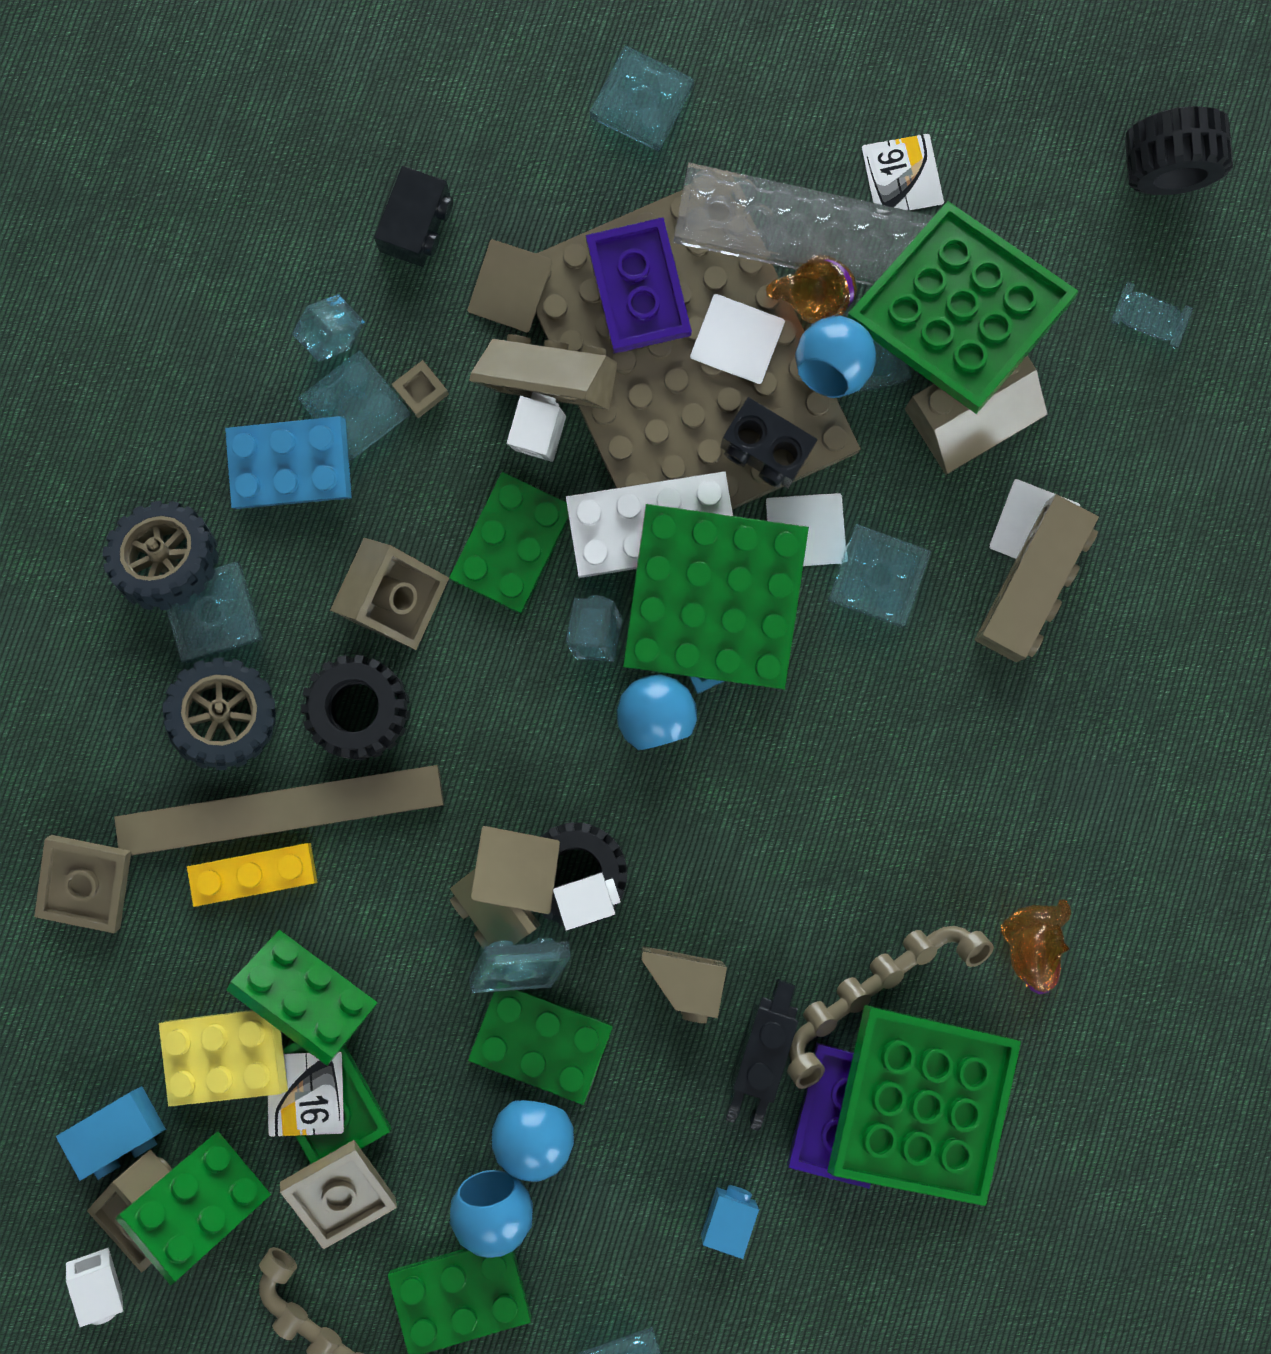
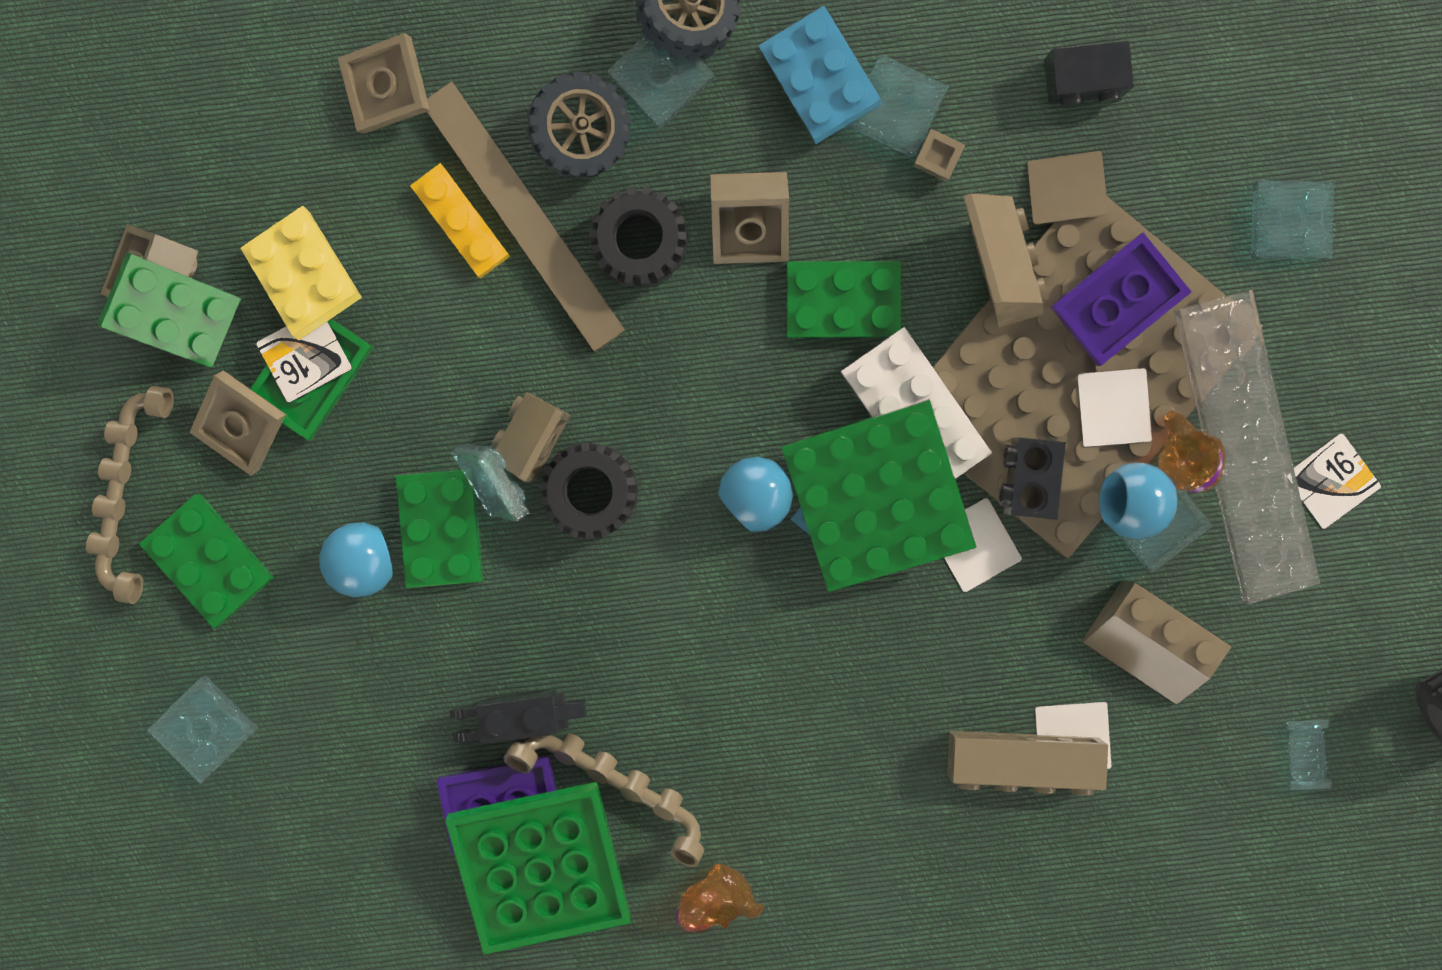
camera: 65 degrees right, 5 degrees up
(94, 1288) = (68, 261): white brick -> none
(110, 1133) = (195, 212): dark azure brick -> none
(302, 997) = (379, 313): green plate -> none
(328, 327) = (954, 49): clear light blue brick -> none
(491, 1213) = (281, 555): dark azure helmet -> none
(515, 870) = (565, 440): dark tan sticker -> none
(537, 426) = (953, 272): white brick -> none
(586, 900) = (569, 511): white brick -> none
(594, 628) = (803, 406): clear light blue brick -> none
(688, 981) = (546, 626): dark tan slope -> none
(730, 1221) = (370, 752): dark azure brick -> none
(879, 575) = (965, 626): clear light blue plate -> none
(962, 306) = (1235, 589): green plate -> none

